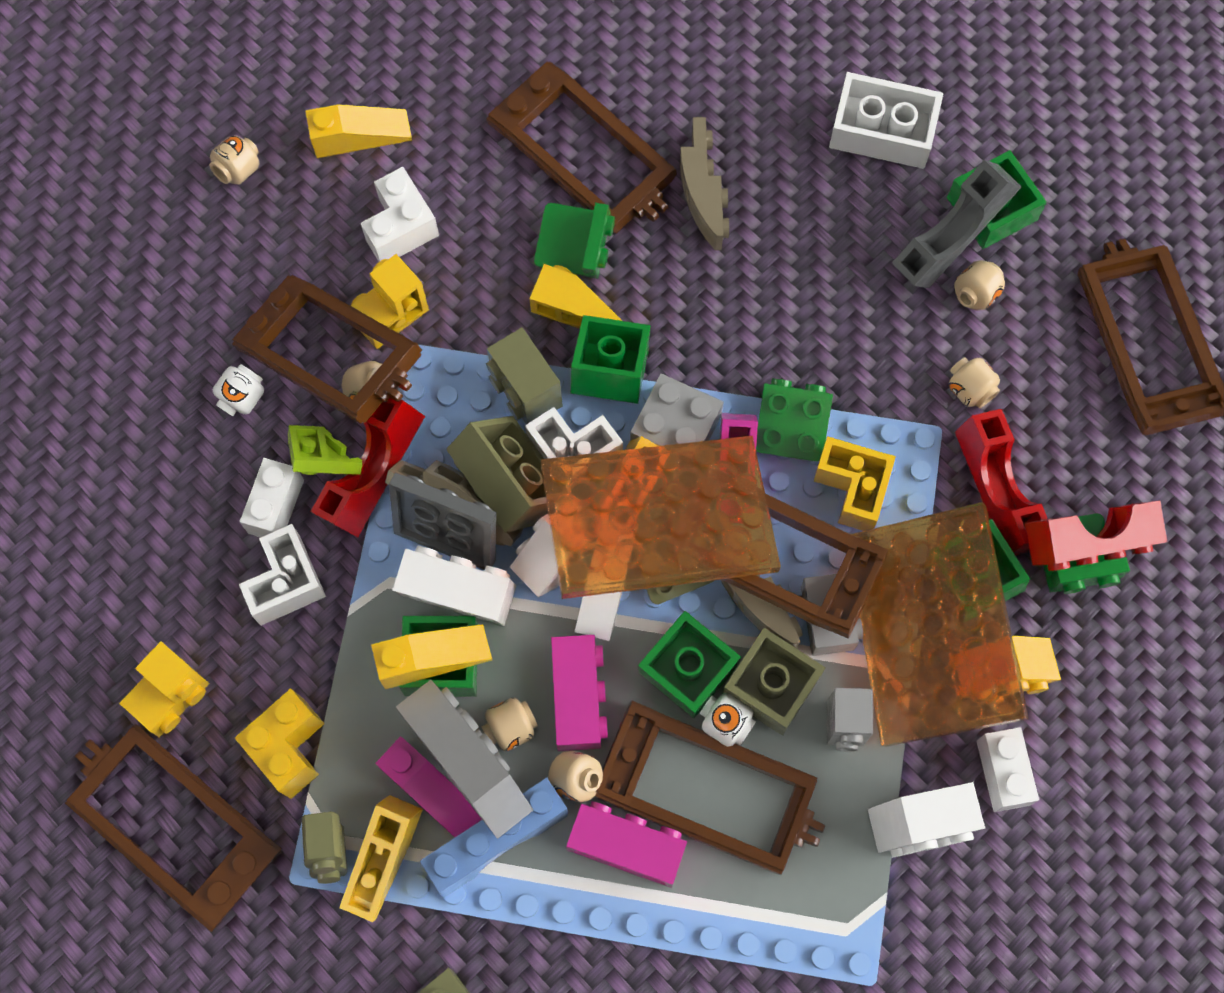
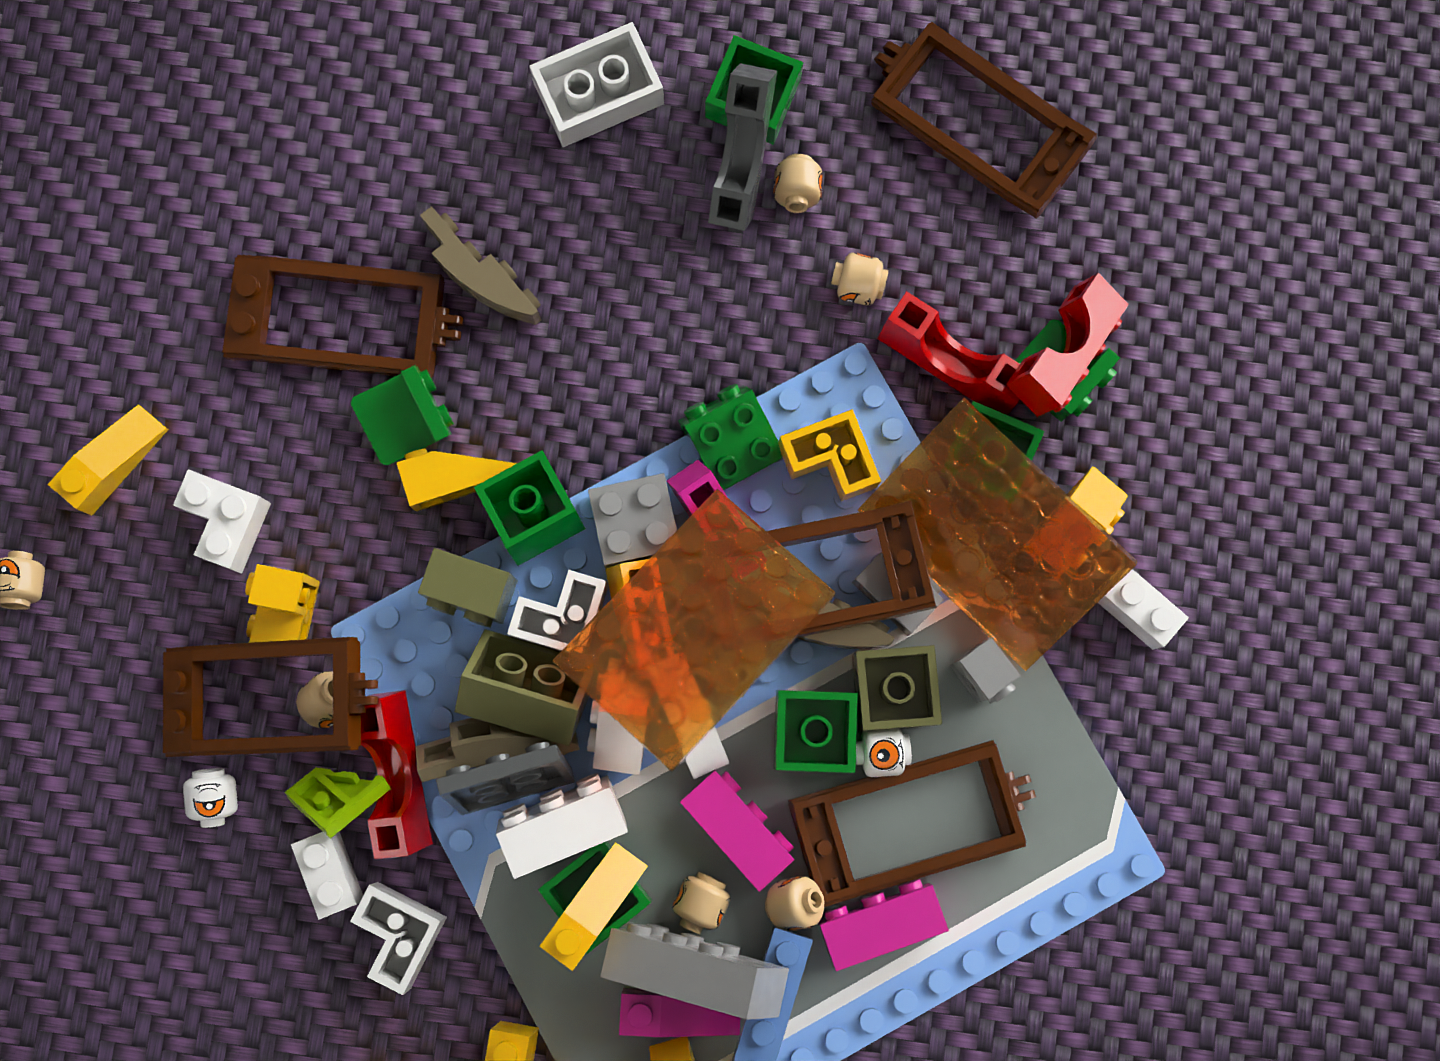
camera: 45 degrees left, 10 degrees up
(926, 820) = (1115, 711): white brick -> none

